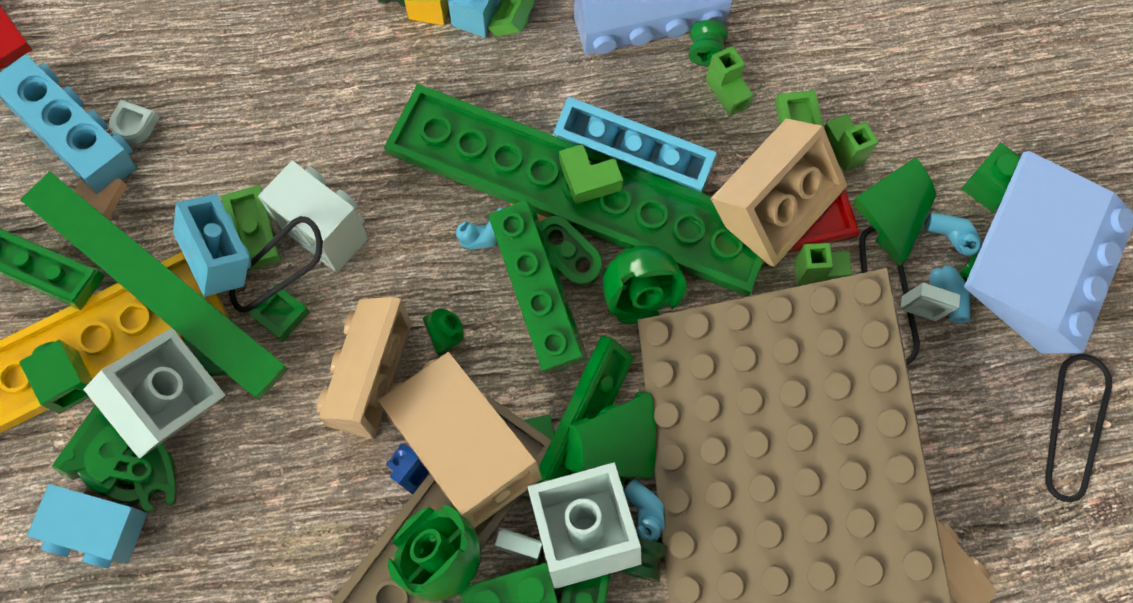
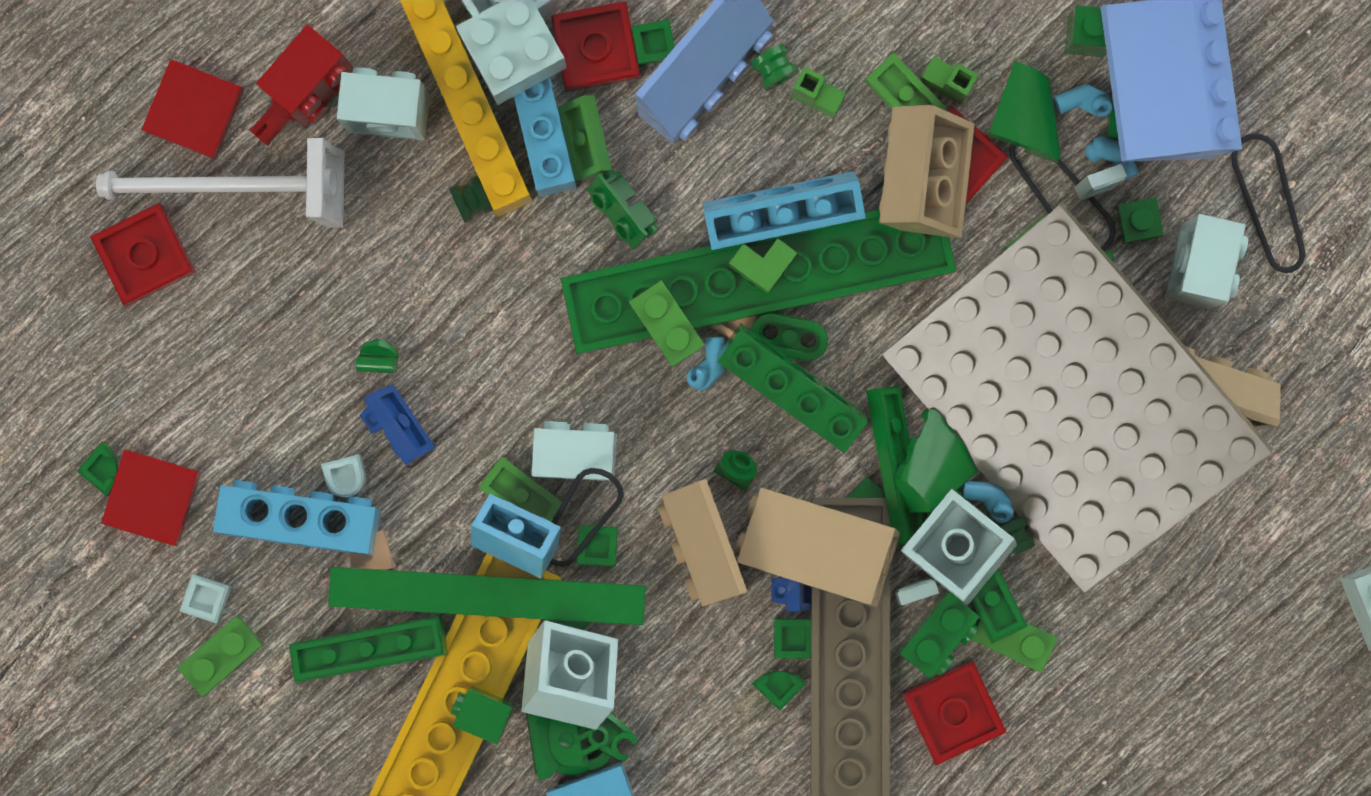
camera: 30 degrees left, 15 degrees up
(201, 107) = (390, 412): none -> blue hinge
(230, 49) = (377, 357): none -> green plate
(334, 547) = (779, 686): none -> green tile
(377, 509) = (792, 638): none -> green tile
(435, 554) = (867, 643): green cylinder -> none
(473, 170) = (666, 324): none -> bright green plate
(507, 54) = (610, 195): none -> green hinge
(642, 283) = (865, 325): green cylinder -> none
(819, 264) = (997, 207): bright green piece -> none
(944, 361) = (1139, 220): none -> green plate
(990, 429) = (1206, 261): none -> light aqua brick

